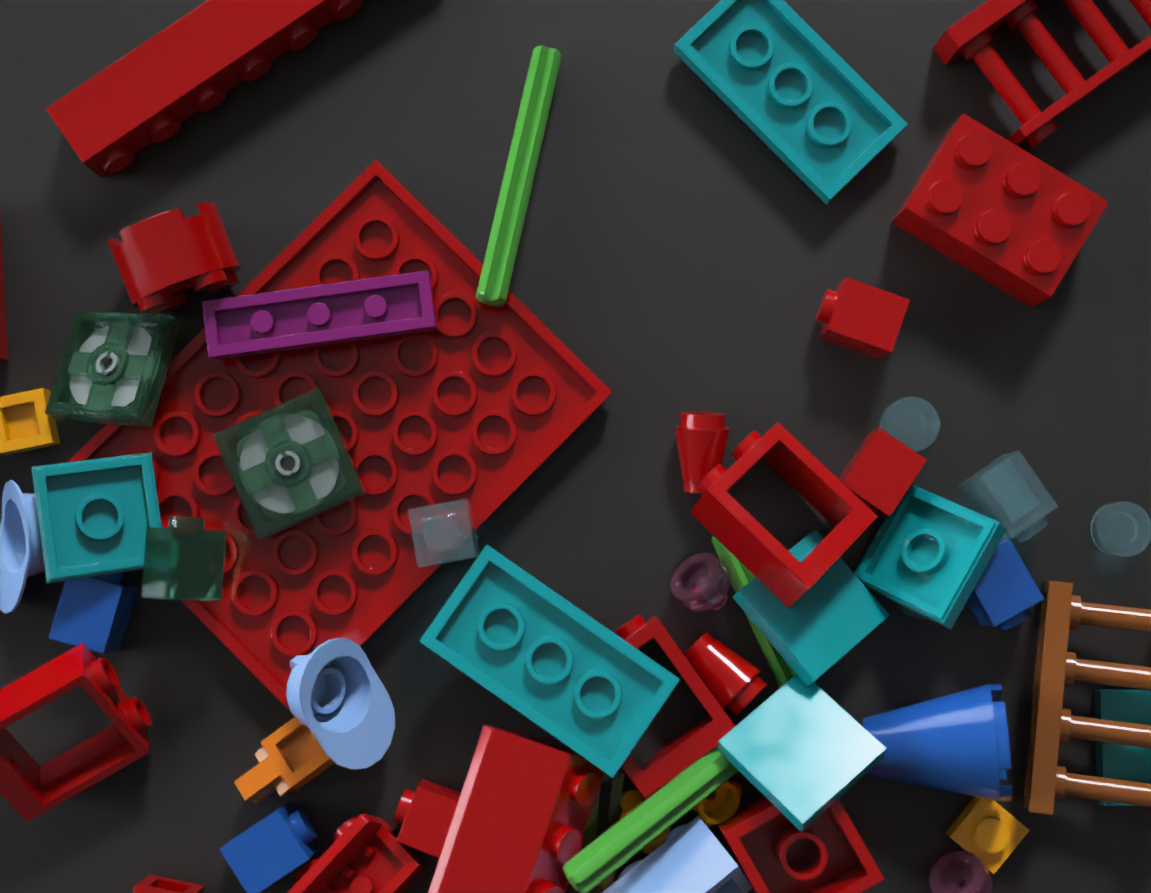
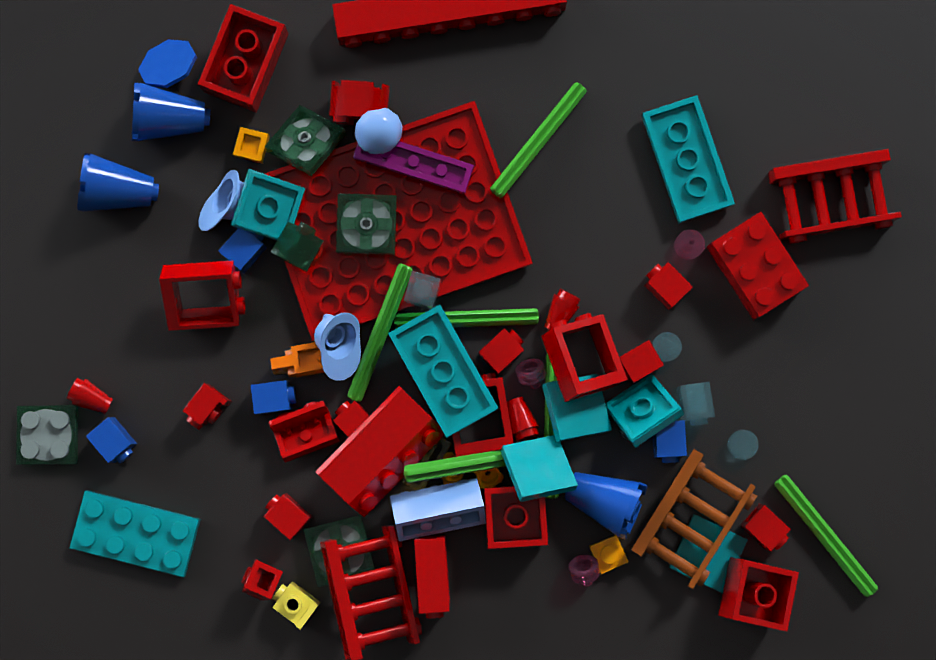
camera: 30 degrees right, 0 degrees up
(229, 290) = (378, 131): none -> light blue hair
(404, 642) = (379, 332): none -> bright green axle
(562, 532) = (480, 317): none -> bright green axle
(633, 569) = (502, 350): none -> red brick
(854, 239) = (686, 250): none -> clear pink tile

